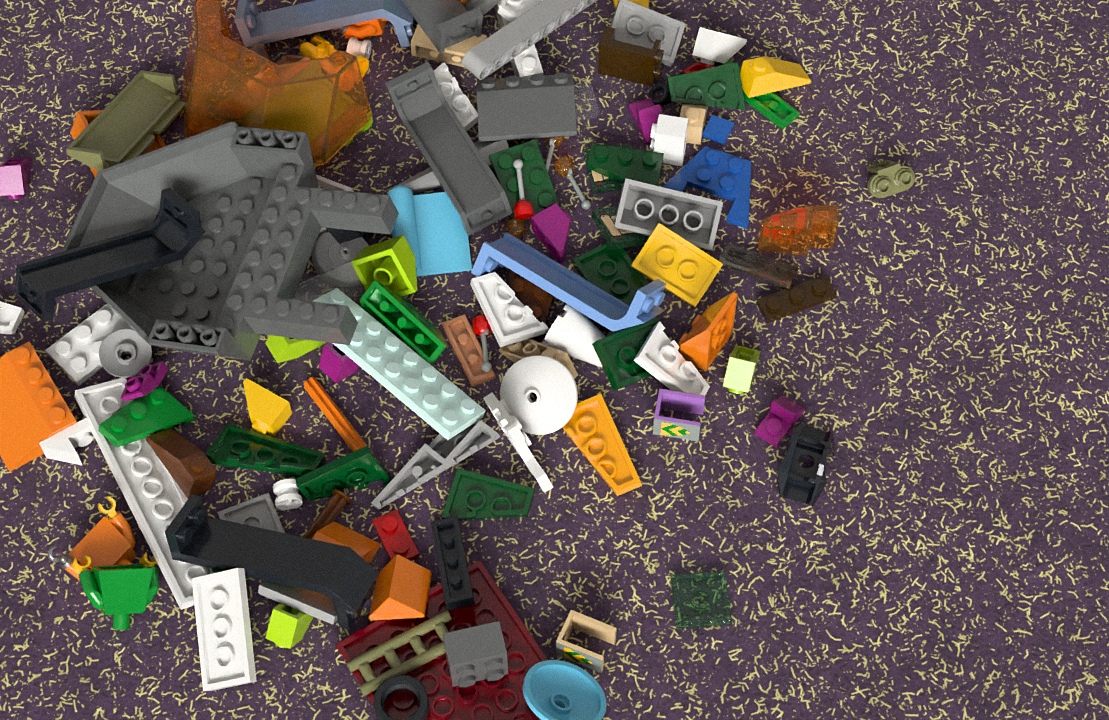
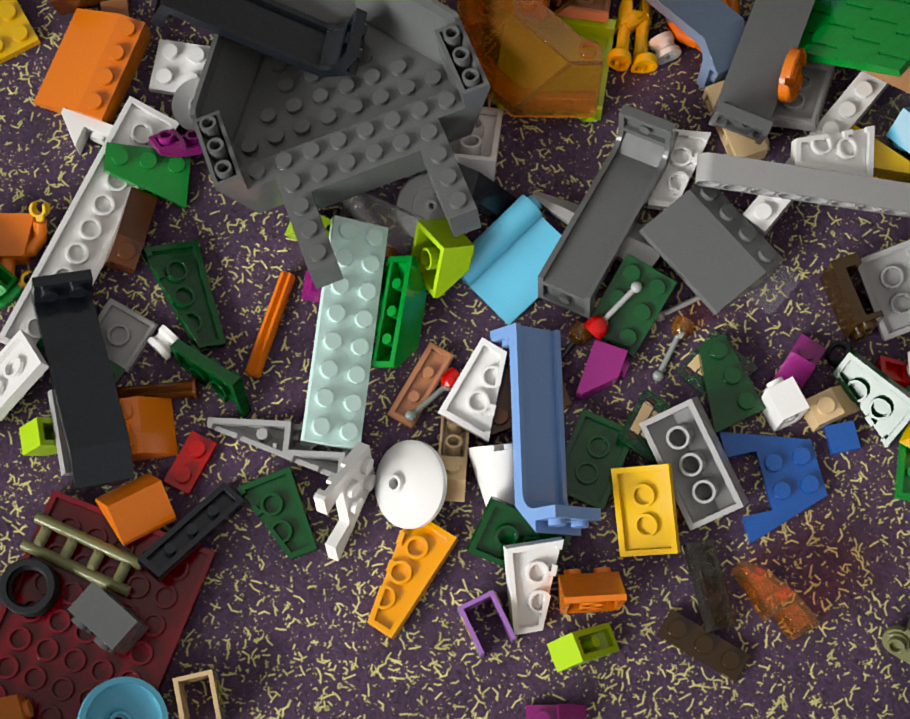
camera: 55 degrees right, 15 degrees up
(266, 409) = (231, 259): yellow slope -> none

